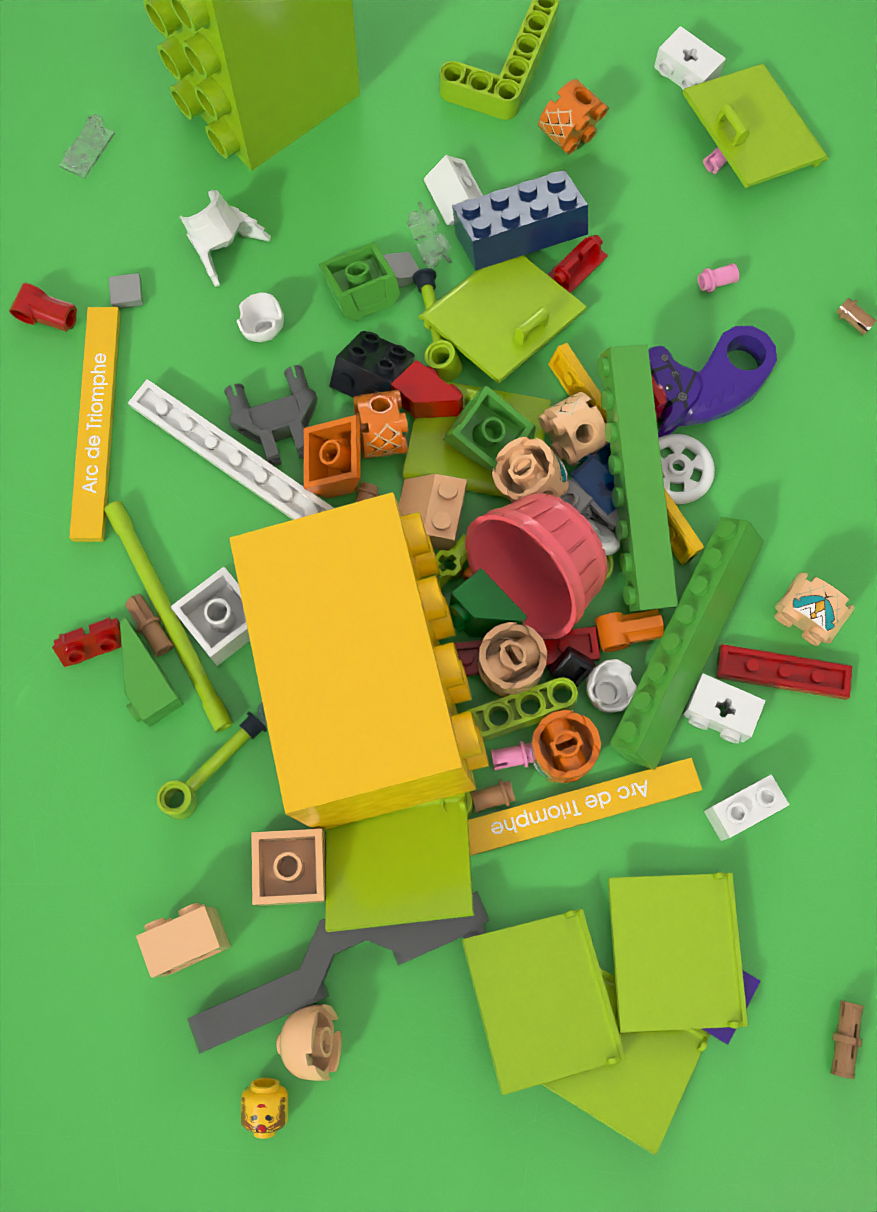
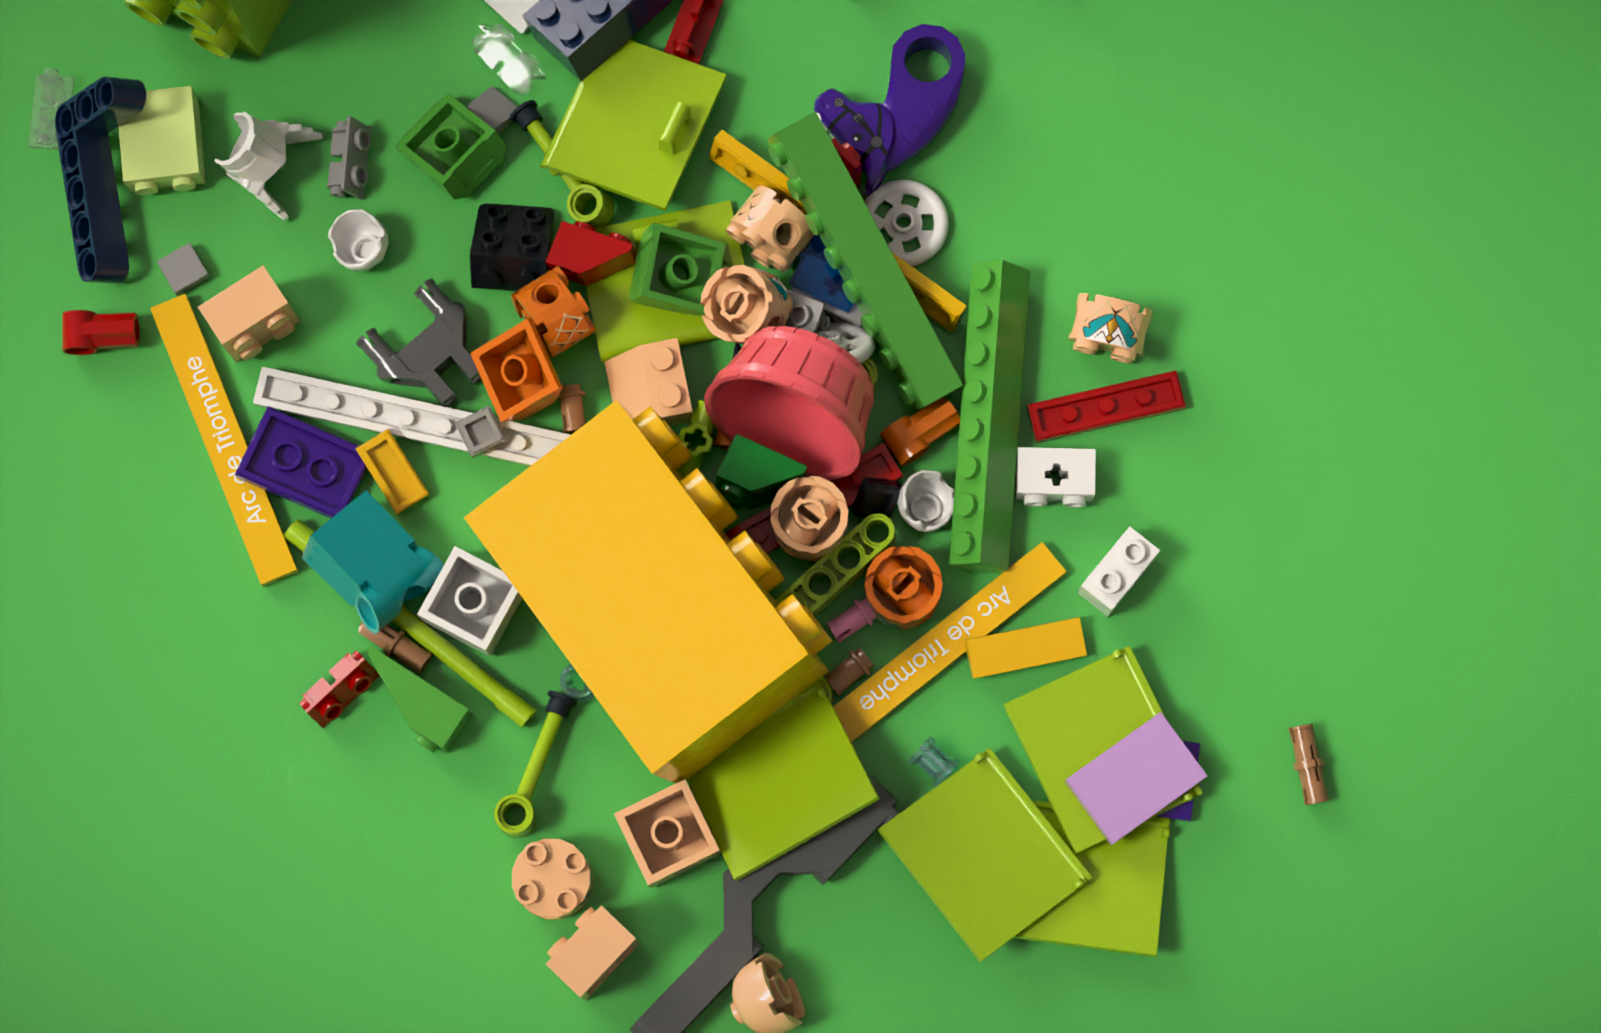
camera: 20 degrees left, 5 degrees up
(90, 194) = (90, 177): none -> dark blue beam
(144, 463) = (302, 464): none -> dark purple tile
(152, 194) = (163, 143): none -> yellowish green brick
(153, 335) = (249, 315): none -> light nougat brick
(155, 551) = (371, 561): none -> teal piece
(181, 864) = (552, 879): none -> light nougat brick
(207, 494) = (392, 471): none -> yellow tile
(286, 255) = (351, 142): none -> light grey hinge
(286, 491) = (480, 432): none -> light grey tile
(532, 901) = (934, 761): none -> clear light blue bush
(644, 838) = (1025, 647): none -> yellow tile
(696, 990) = (1135, 778): none -> lavender tile

